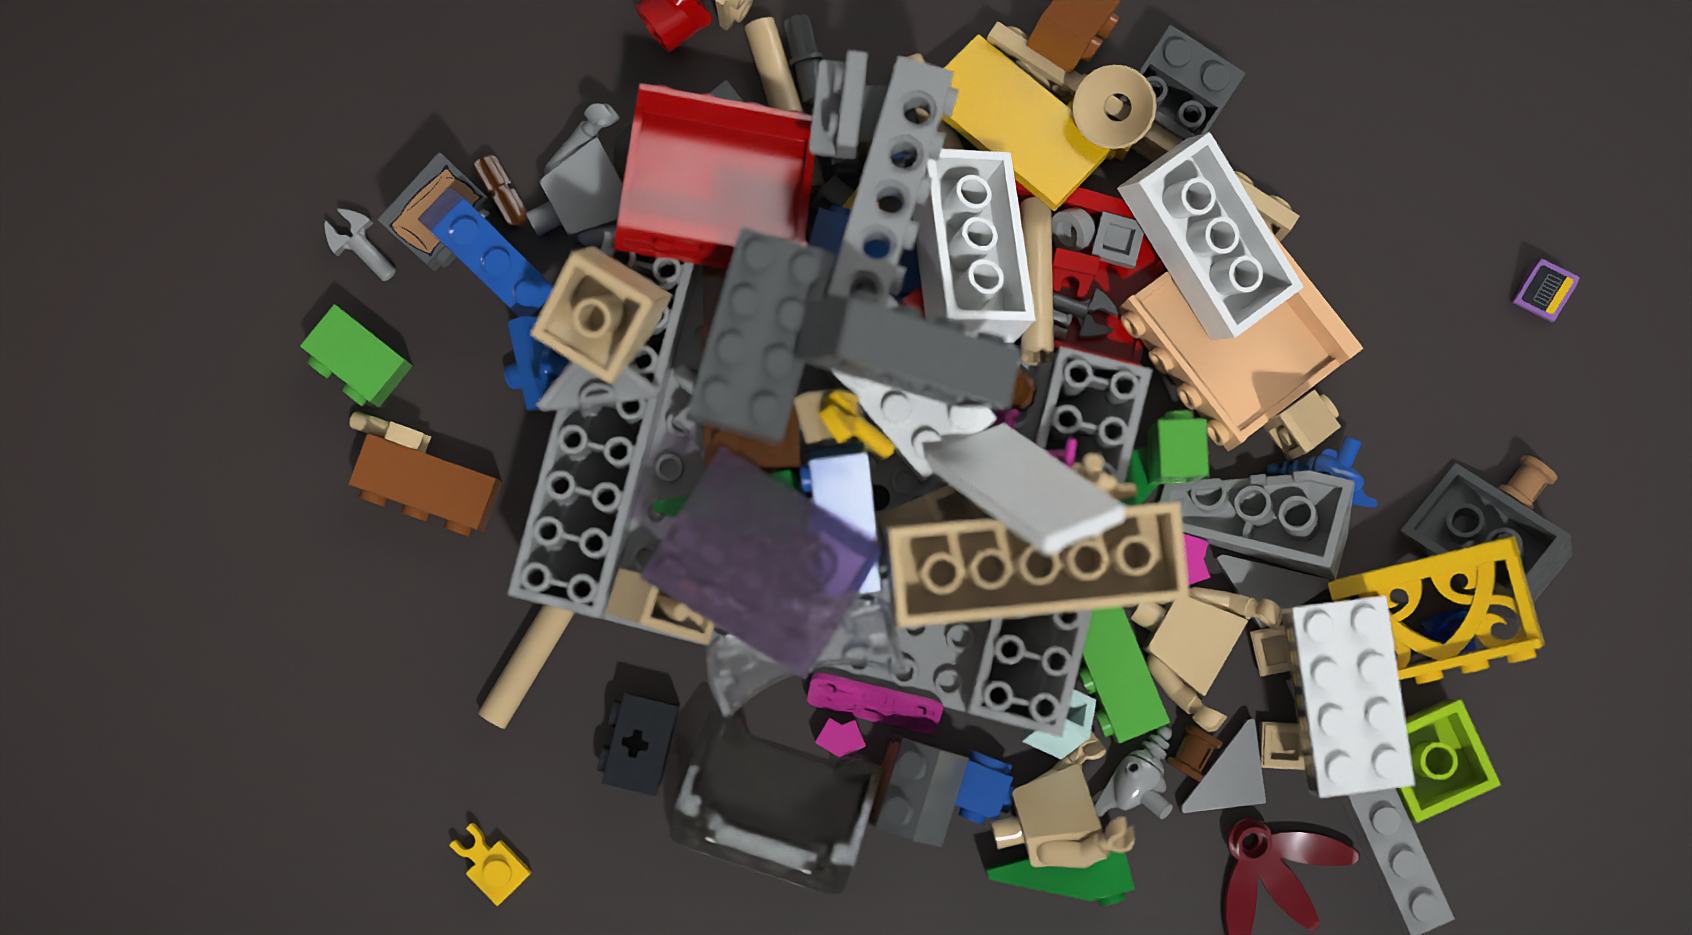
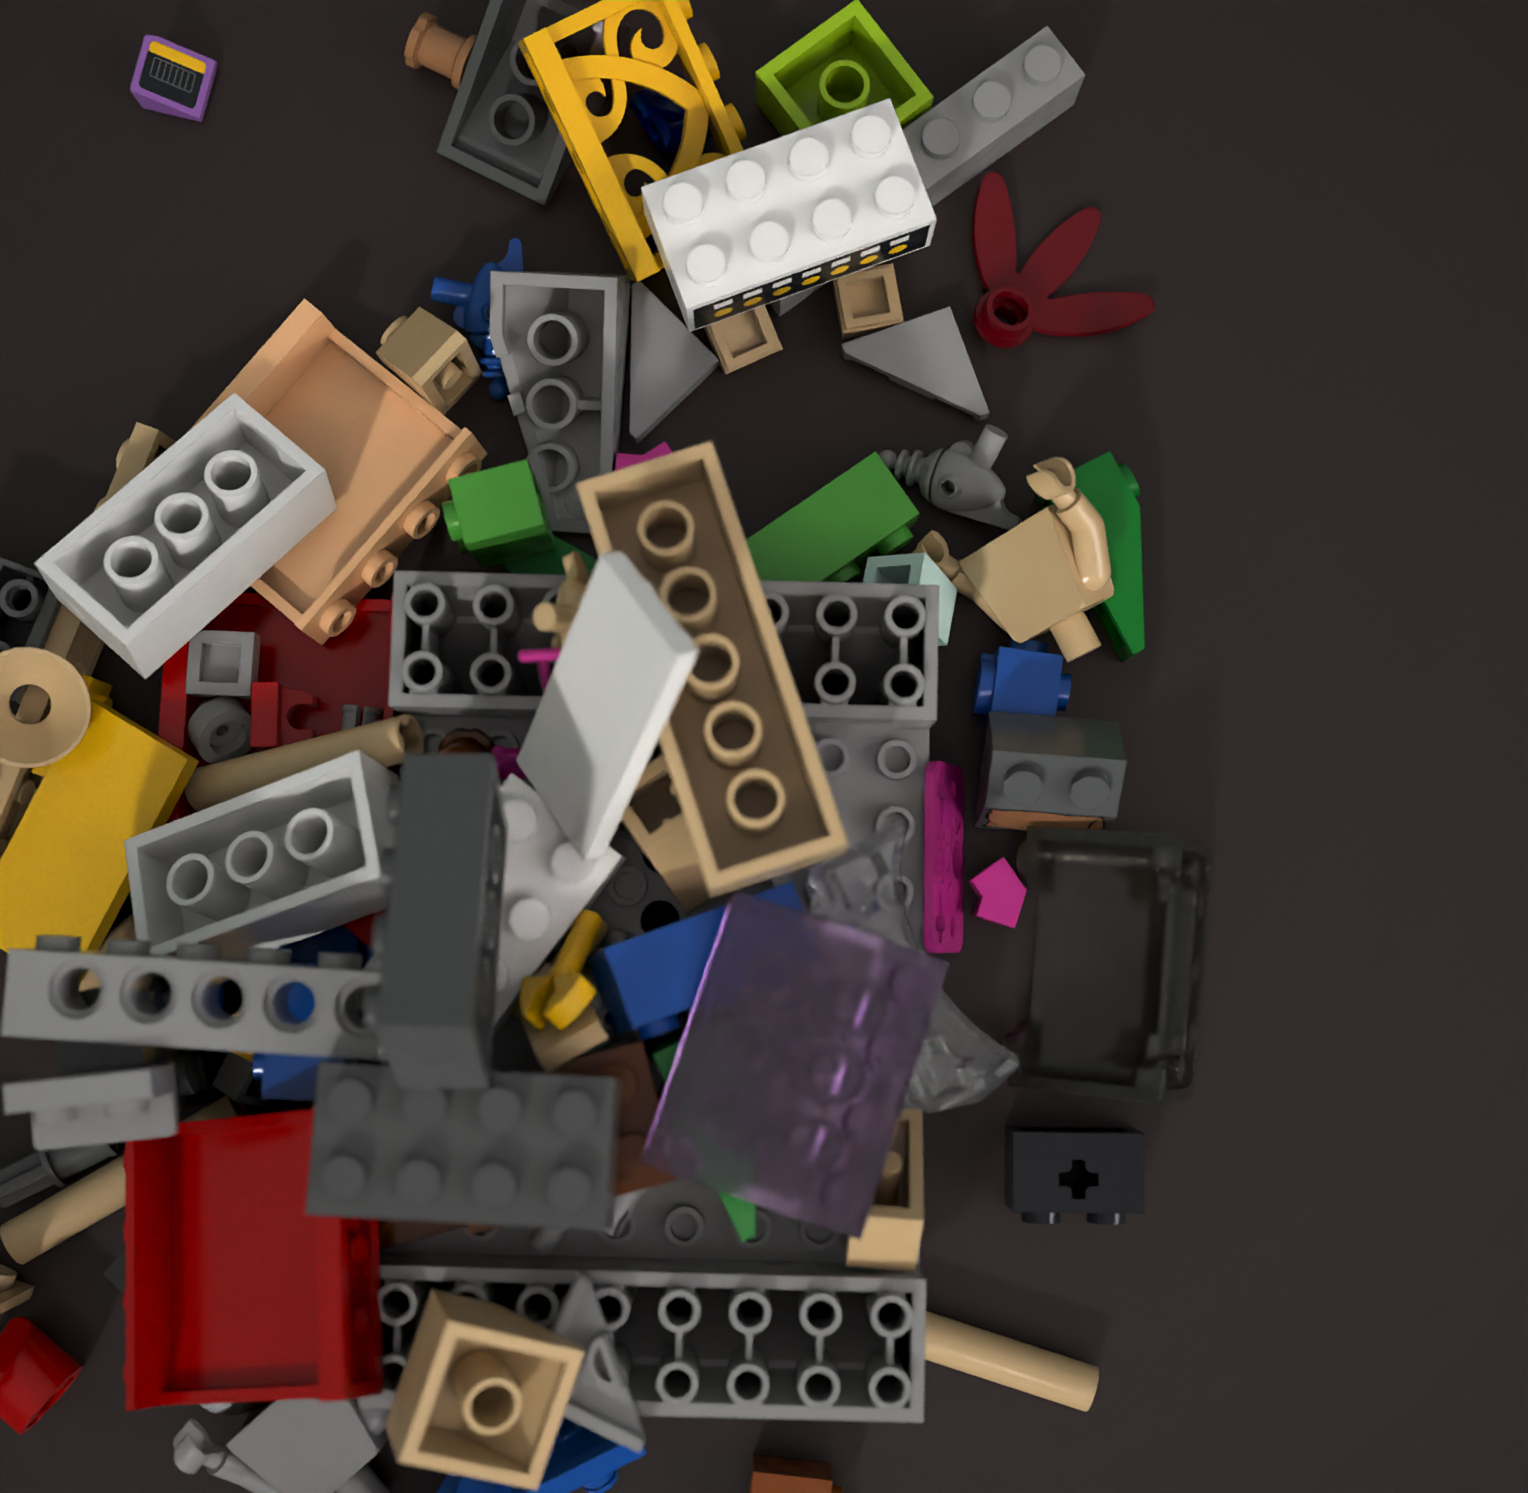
camera: 105 degrees left, 0 degrees up
(495, 869) = (1292, 1331): yellow plate -> none
(1080, 311) = (334, 696): dark grey bar -> none
(1193, 641) = (764, 443): tan torso -> none
(1194, 752) = (905, 414): reddish brown bush -> none

